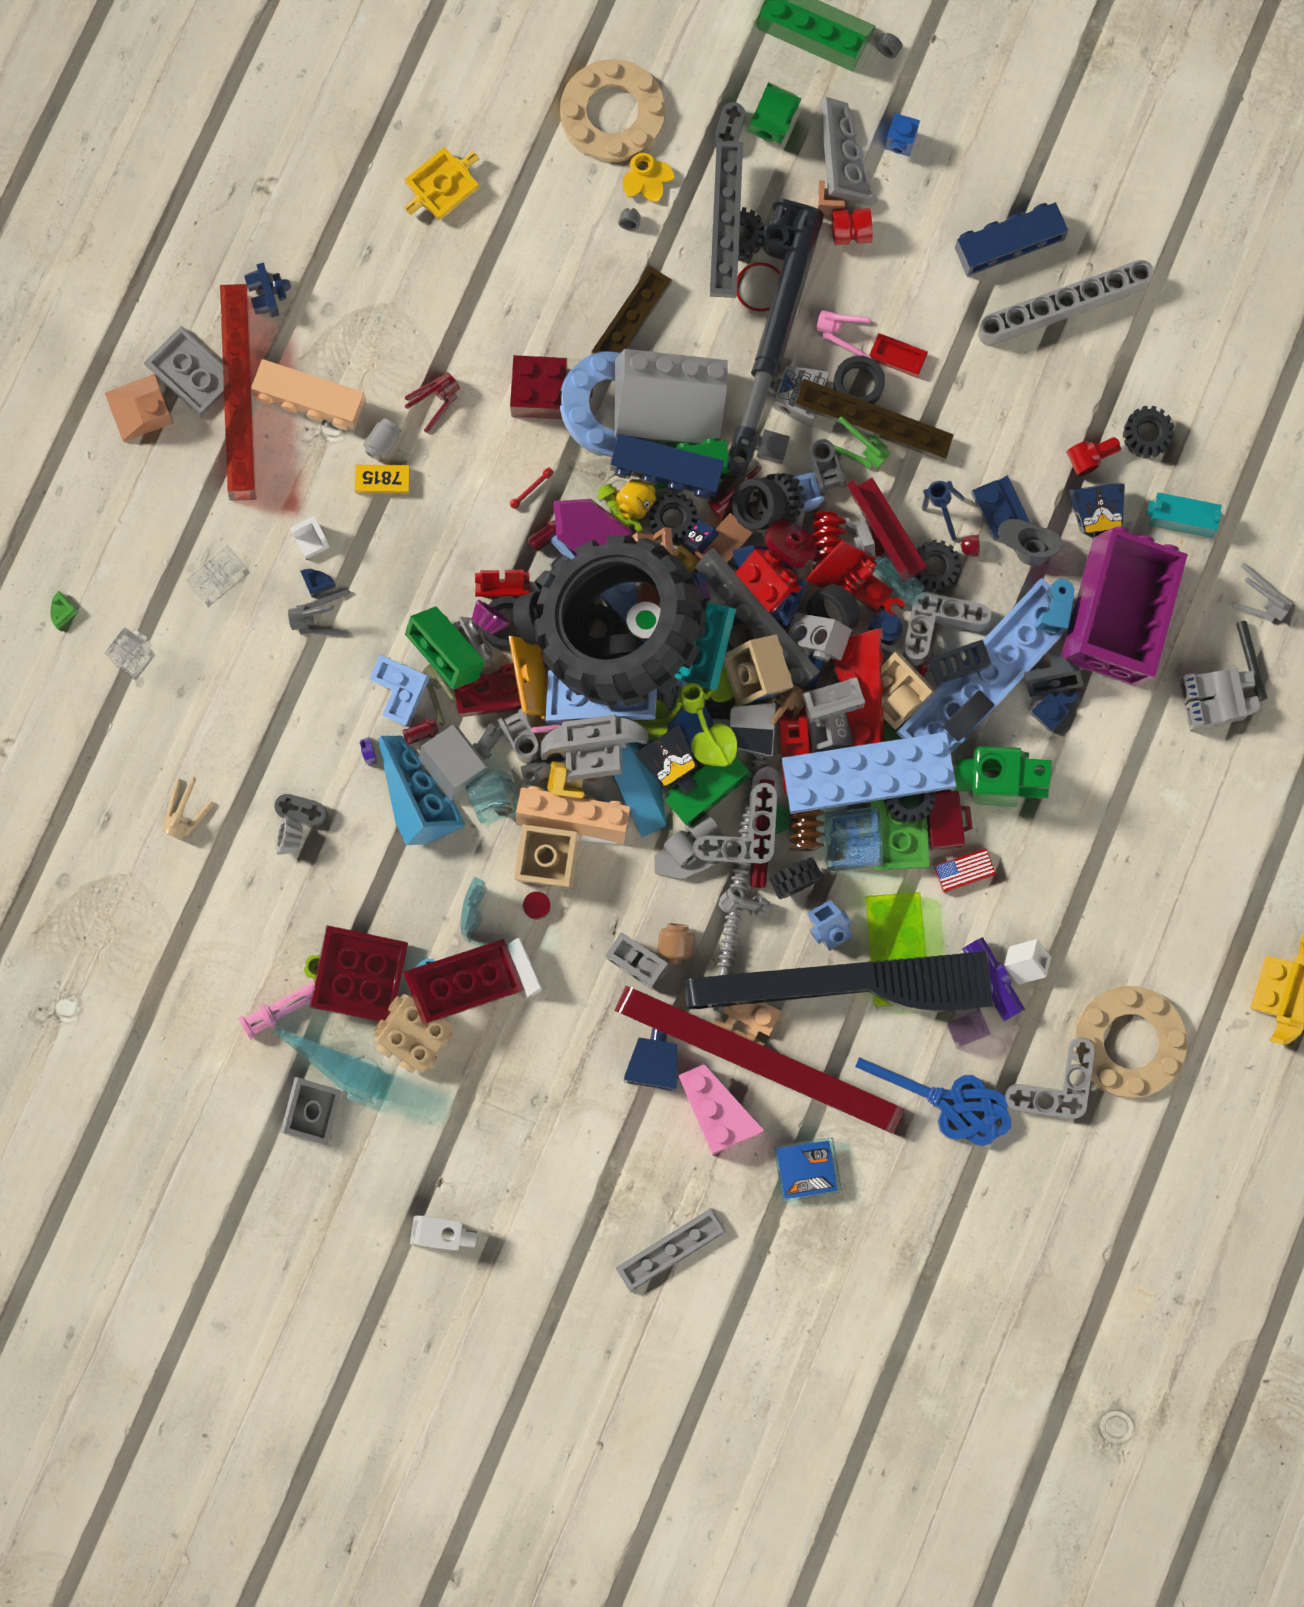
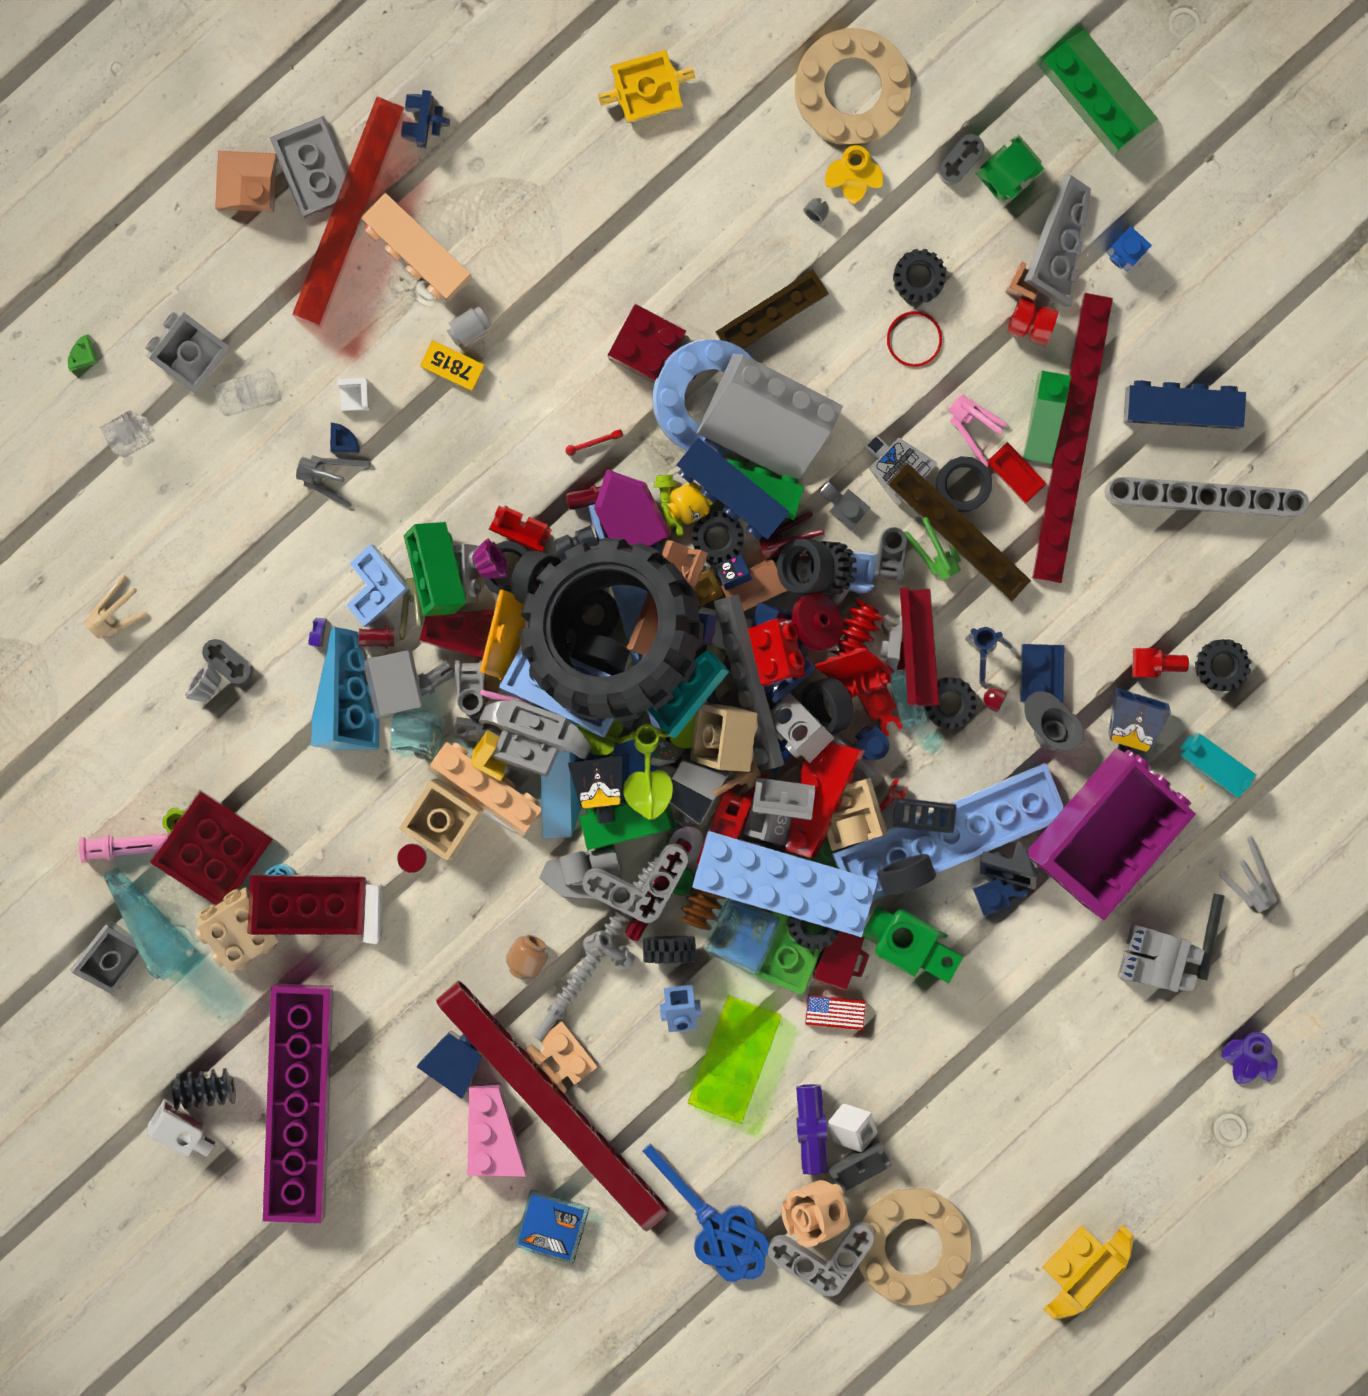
camera: 20 degrees right, 10 degrees up
(150, 564) = (186, 350): none -> light grey plate
(443, 387) = (553, 300): dark red plant -> none
(444, 1188) = (203, 1089): none -> black piece
(470, 916) = (342, 841): clear light blue slope -> none
(534, 1160) = (298, 1103): none -> magenta brick
(636, 961) = (481, 958): light grey brick -> none
(643, 619) = (638, 633): white sticker -> none
(670, 1249) = (389, 1240): light grey tile -> none
(714, 709) = (665, 753): none -> dark grey tile
(726, 219) = (910, 259): dark grey plate -> none
(798, 239) = (976, 307): black piece -> none
(889, 45) = (1161, 147): dark grey axle -> none
(900, 296) = (1046, 416): none -> green slope
(915, 984) = (732, 1102): black piece -> none
(930, 616) = (917, 753): light grey beam -> none
(931, 308) = (1072, 438): none -> dark red plate
(968, 1029) = (765, 1165): clear purple panel -> none
(1031, 1046) = (815, 1213): none -> light nougat brick
(1051, 993) = (860, 1166): none -> dark grey hinge
(1060, 601) = (1048, 803): dark azure leg -> none

